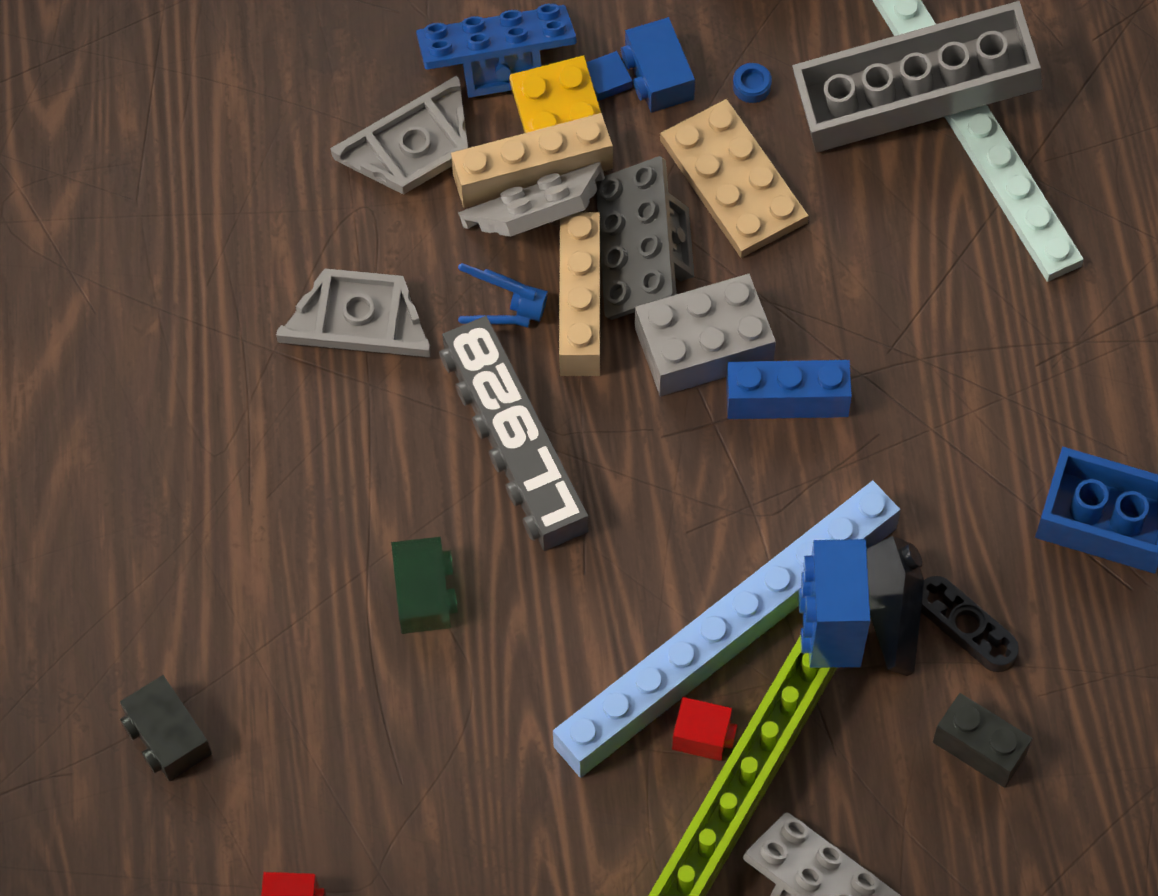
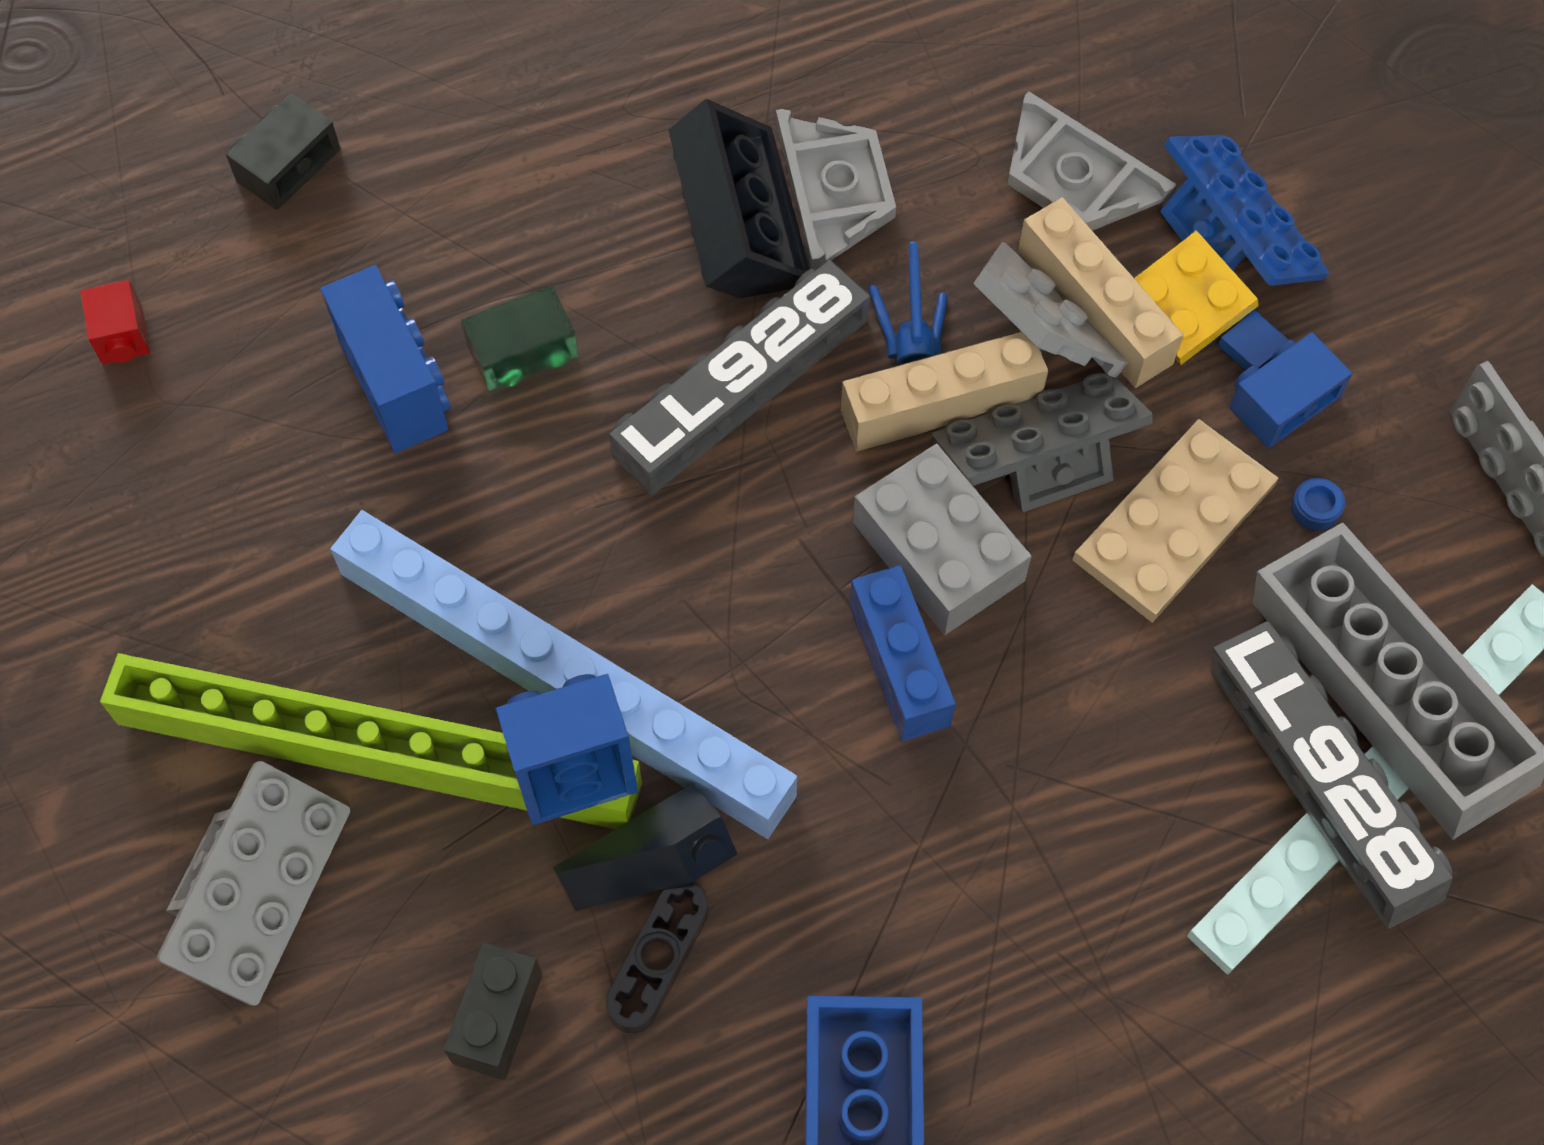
camera: 70 degrees right, 0 degrees up
(352, 391) = (737, 202): none -> black slope
(415, 683) = (388, 357): none -> blue brick
(703, 729) = (424, 678): red brick -> none
(969, 145) = (1331, 775): none -> dark grey brick

